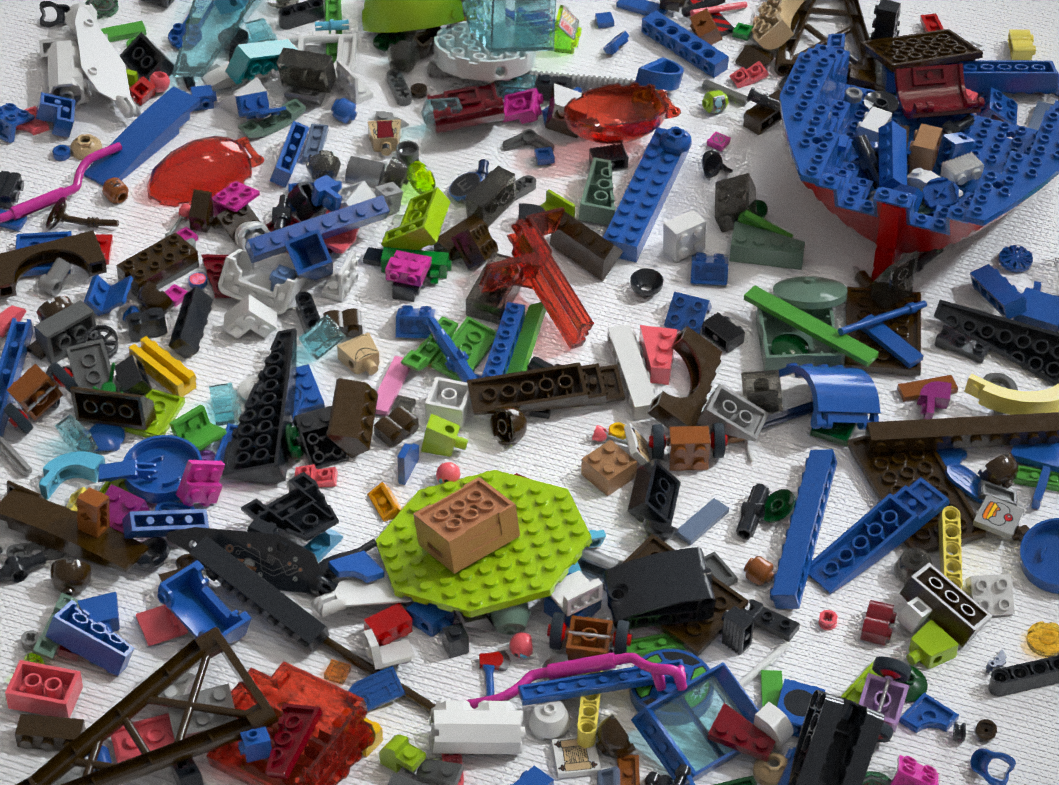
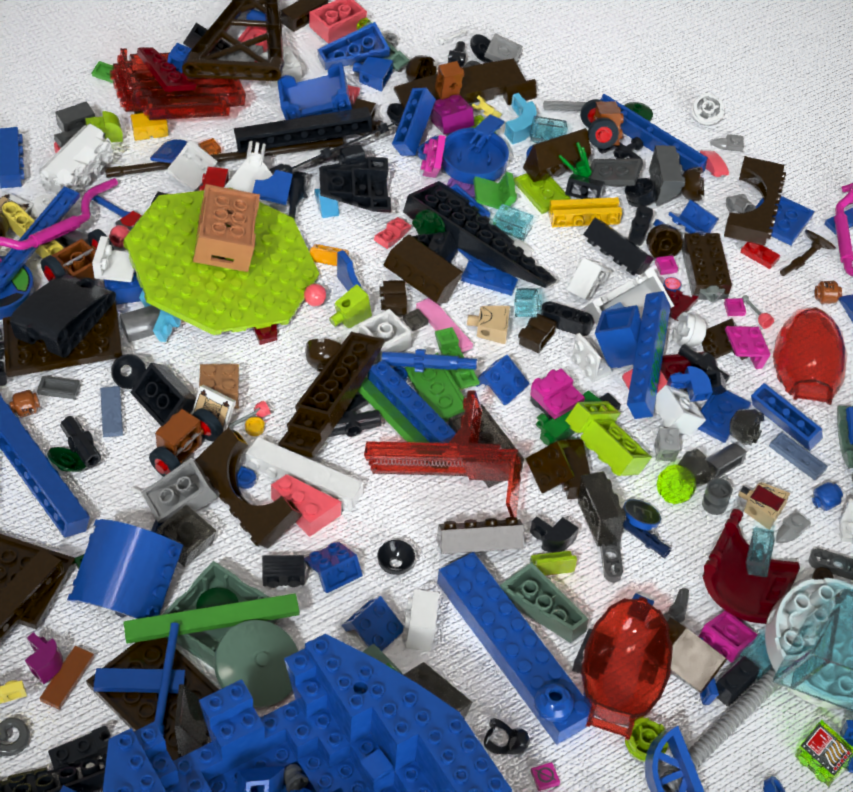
camera: 125 degrees right, 5 degrees up
(201, 211) = (751, 316): dark brown slope -> none

